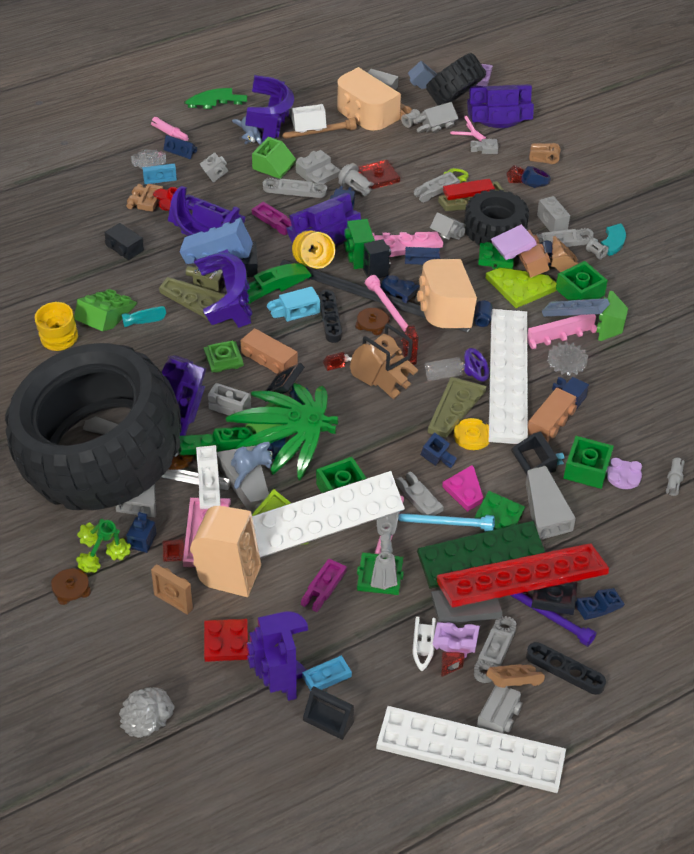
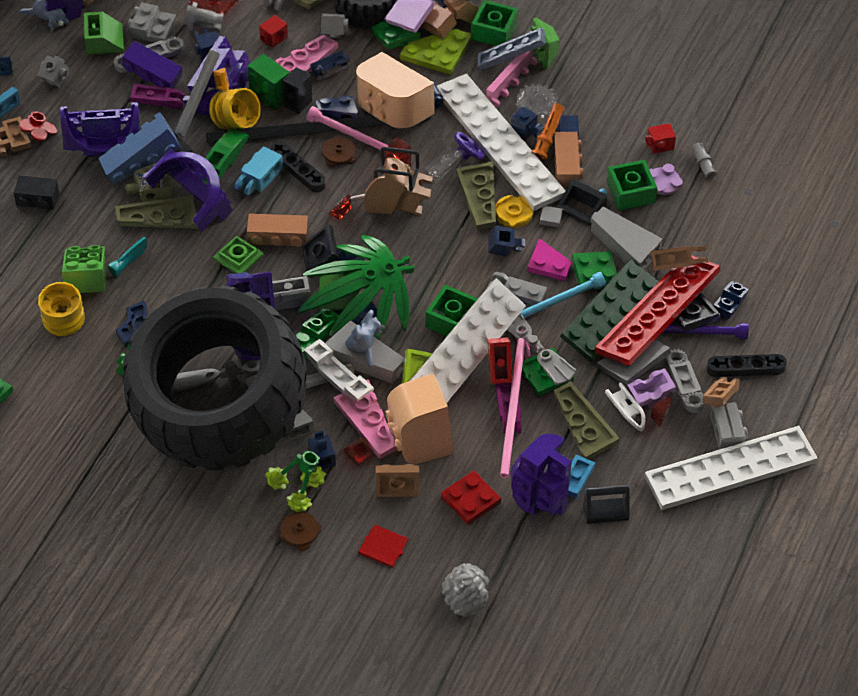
camera: 35 degrees left, 5 degrees up
(122, 637) = (383, 546): none -> red piece
(283, 193) = (151, 66): none -> dark purple brick
(291, 223) = (197, 93): none -> light grey axle
(318, 221) = (221, 79): none -> light orange slope
(335, 573) = (509, 434): none -> bright pink piece
(342, 540) = (499, 360): none -> red brick
(374, 637) = (585, 423): none -> olive wing
(400, 213) = (273, 31): none -> red brick
(499, 453) = (551, 216): none -> light grey tile
(539, 371) = (526, 124): none -> dark blue brick
(545, 390) = (545, 139): none -> orange pin
(573, 540) = (676, 257): none -> medium nougat hinge
(650, 439) = (660, 138): none -> red brick

